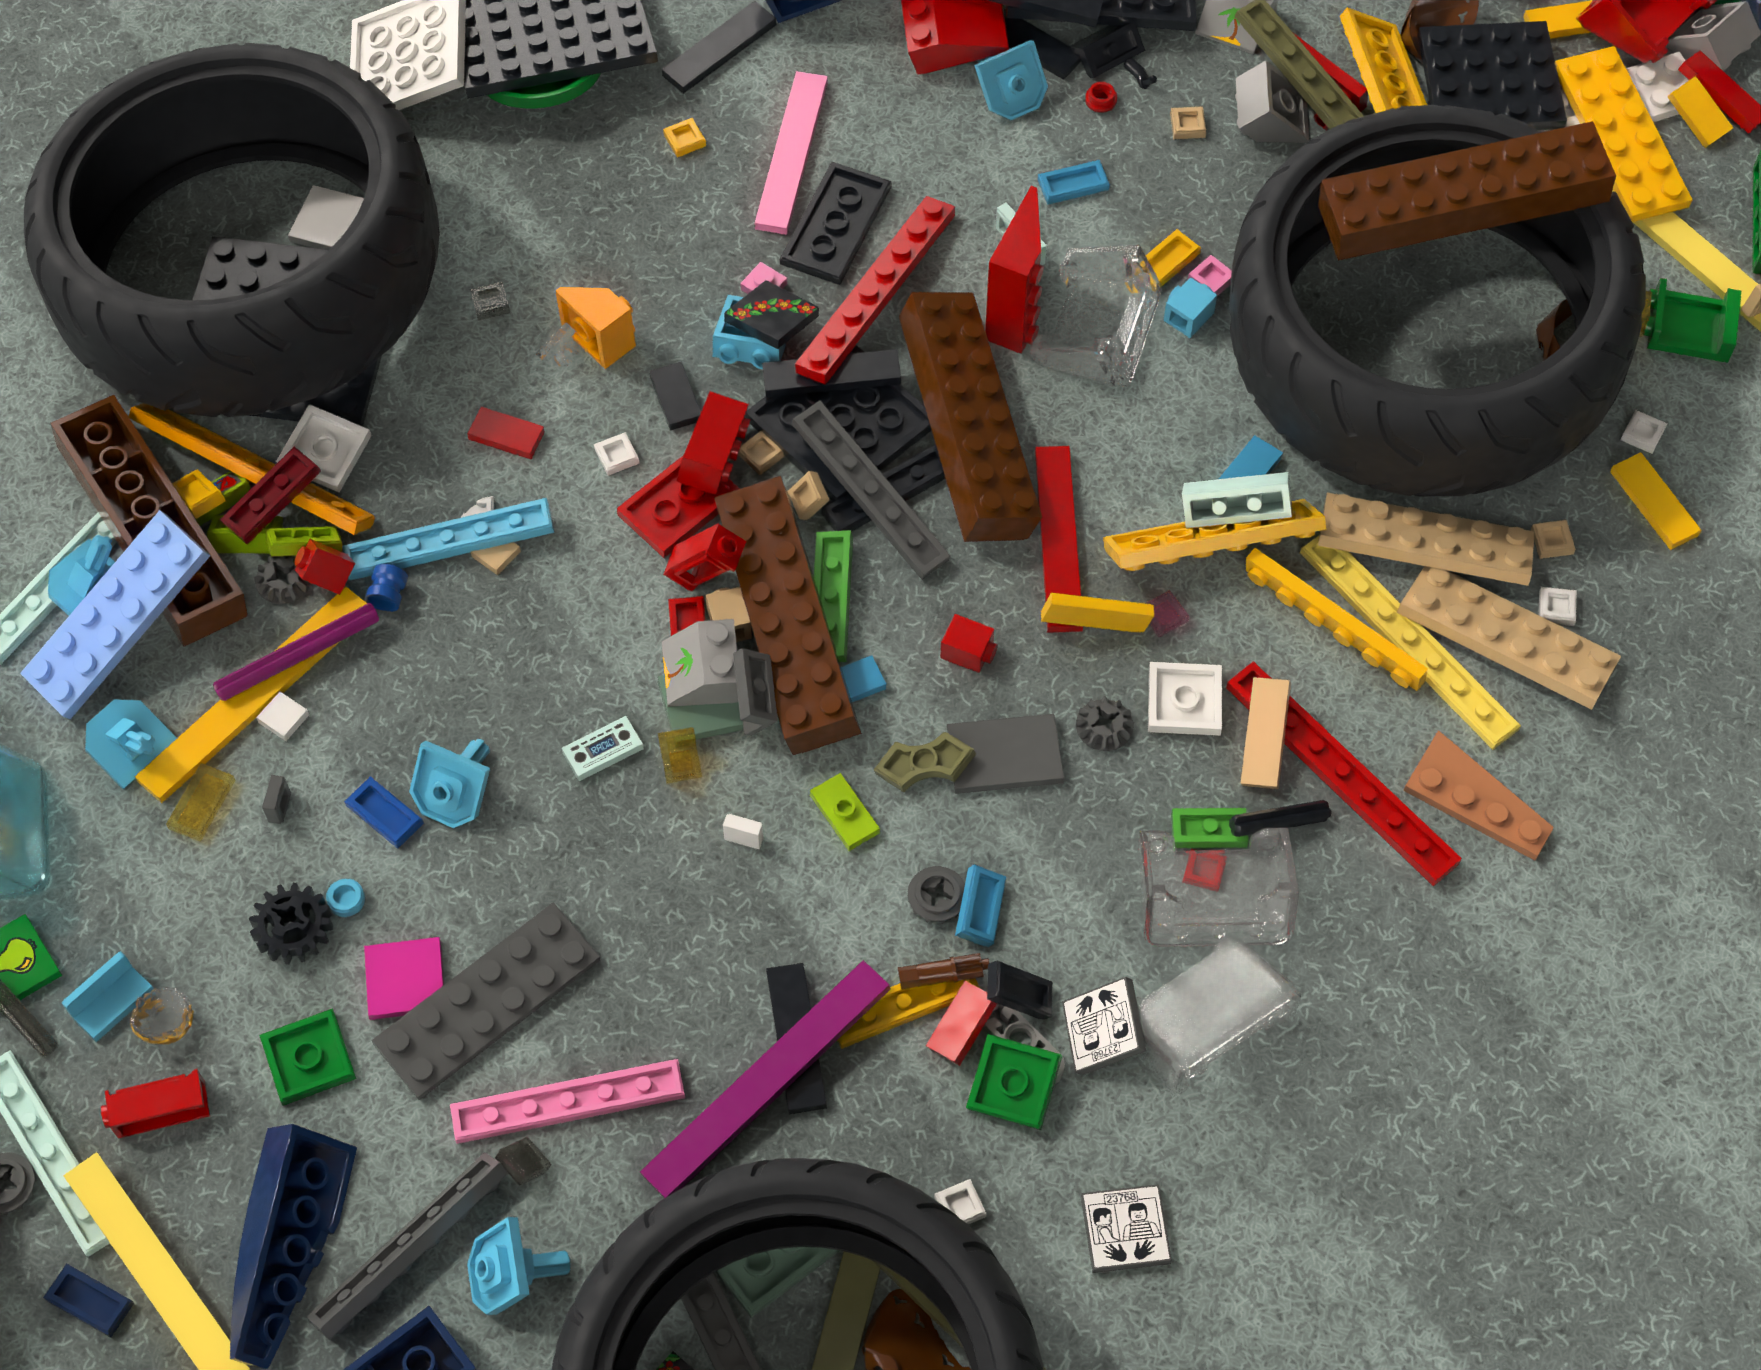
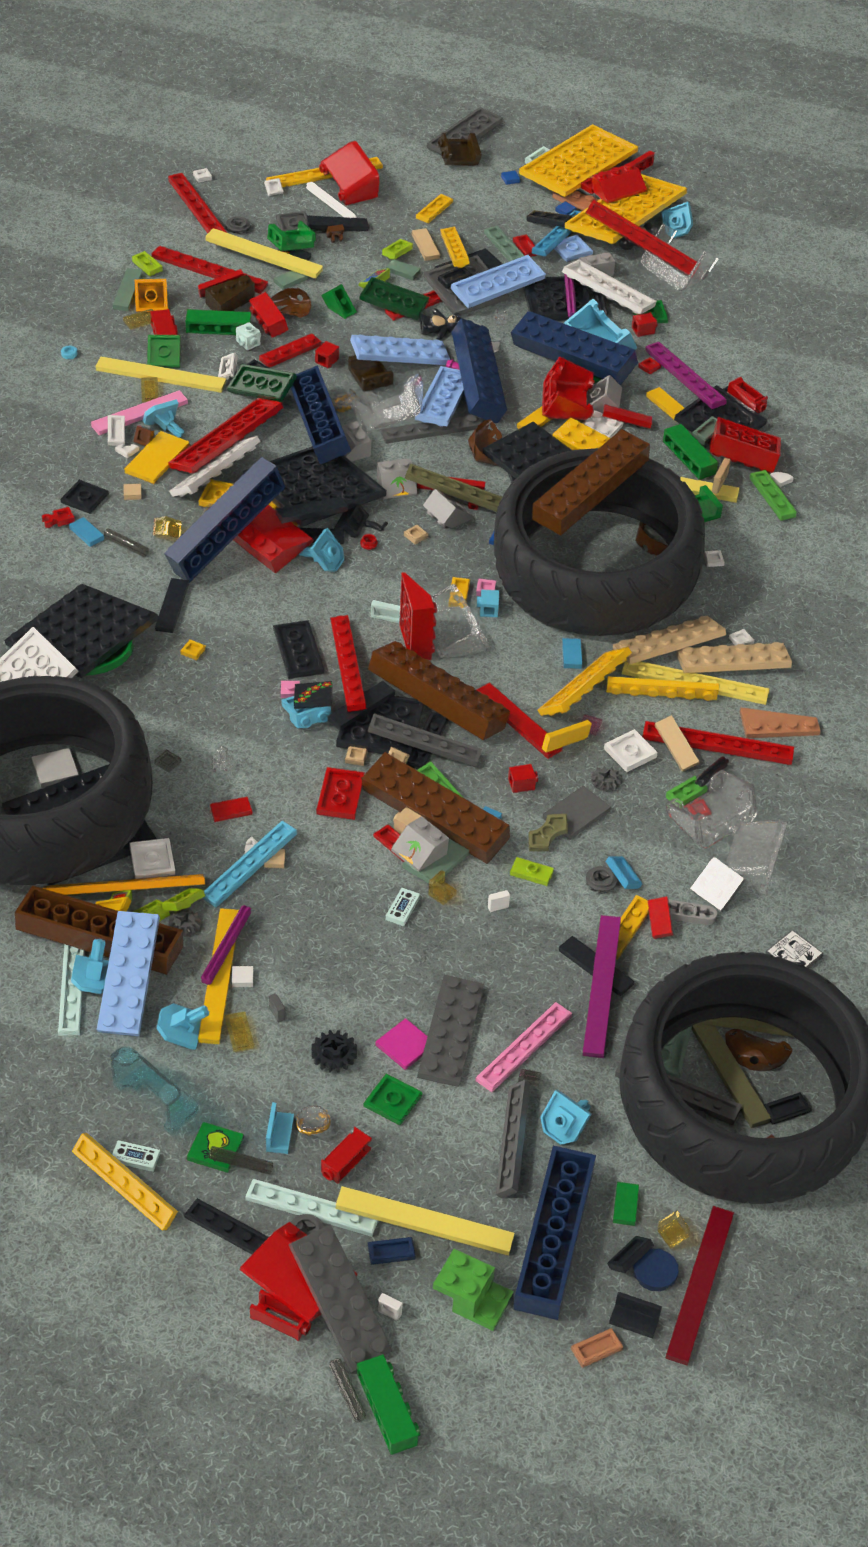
camera: 40 degrees left, 15 degrees down
(270, 495) = (151, 886): dark red tile -> none
(286, 1225) = (451, 1162): dark blue wedge -> none
(323, 566) = (206, 902): red brick -> none
(345, 897) = (347, 1026): medium azure tile -> none
(384, 812) = (329, 987): blue tile -> none
(386, 587) = (240, 896): blue wheel -> none
(450, 784) = (354, 954): medium azure piece -> none
(600, 321) = (237, 736): light orange slope -> none
(616, 453) = (291, 790): white tile -> none
(675, 395) = (294, 753): black tile -> none
(708, 552) = (381, 802): red window -> none
(714, 443) = (337, 758): red brick -> none
(755, 690) = (459, 844): dark grey panel -> none
(791, 153) = (250, 631): bright pink tile -> none
(942, 971) = (633, 903): reddish brown piece -> none
(1014, 1082) = (701, 926): green tile -> none
(1019, 990) = (673, 890): black tile -> none
(1073, 182) = (387, 582): dark azure tile -> none
(1237, 500) = (583, 662): light aqua brick -> none
(1382, 61) = (481, 469): yellow plate -> none
(1553, 539) = (717, 614): tan tile -> none
(1655, 501) = (742, 581): yellow tile -> none
(1700, 112) = (618, 423): yellow tile -> none

